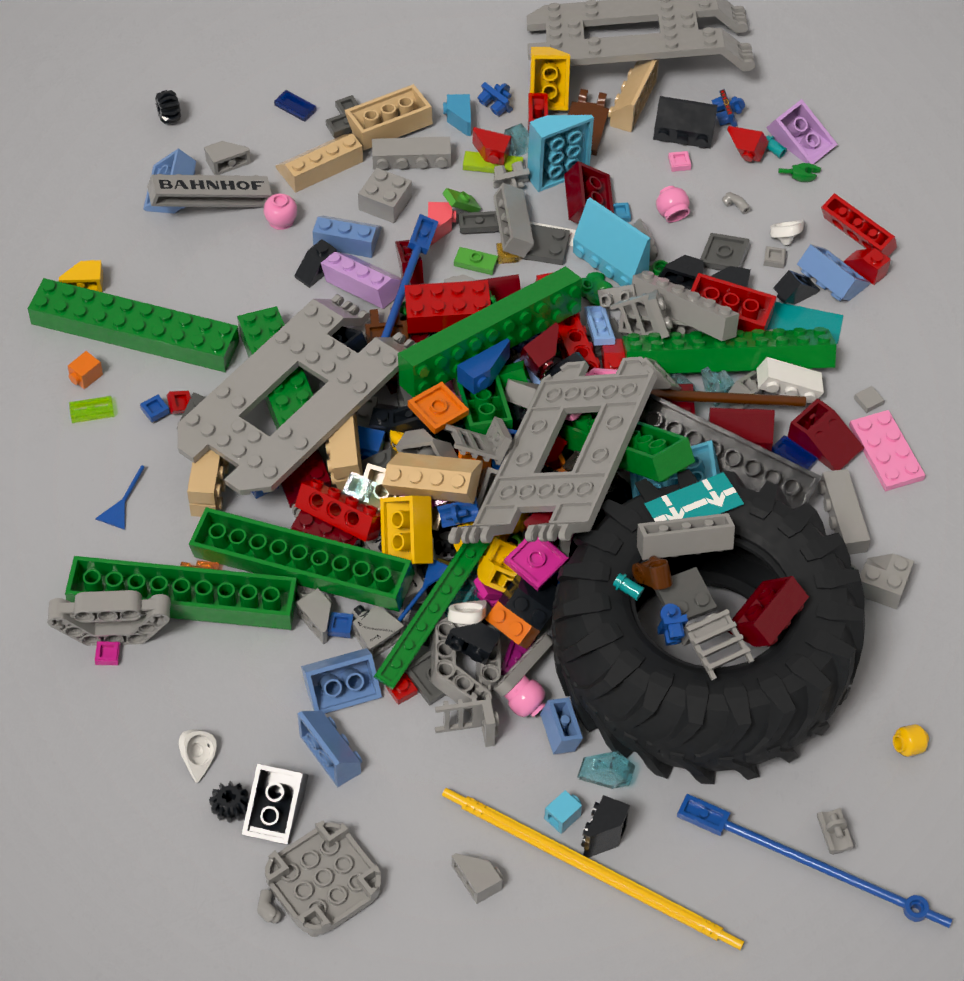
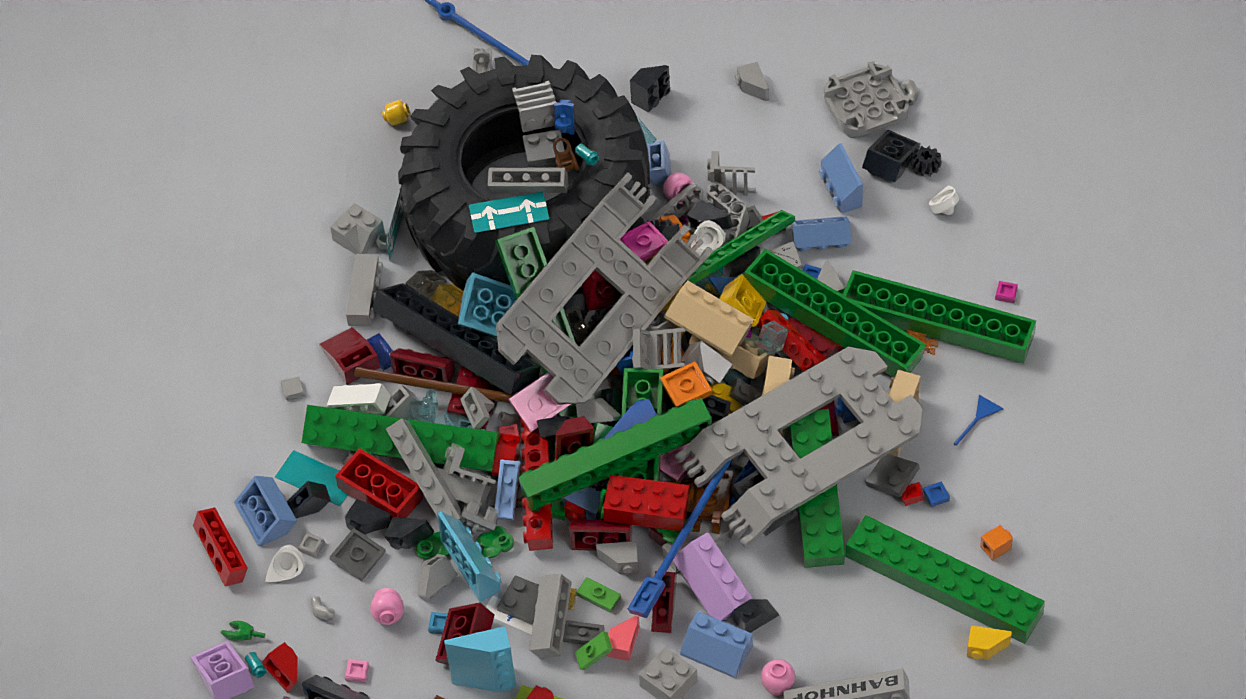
camera: 160 degrees left, 0 degrees up
(91, 412) = (994, 511): clear neon green tile -> none
(110, 616) = (1001, 289): light grey piece -> none
(515, 178) = (535, 674): light grey hips -> none
(563, 811) = (675, 111): medium azure brick -> none
(594, 869) = (677, 83): yellow axle -> none
(769, 610) = (487, 120): dark red slope -> none
(869, 263) = (229, 513): red slope -> none
(887, 450) = (300, 341): bright pink plate -> none

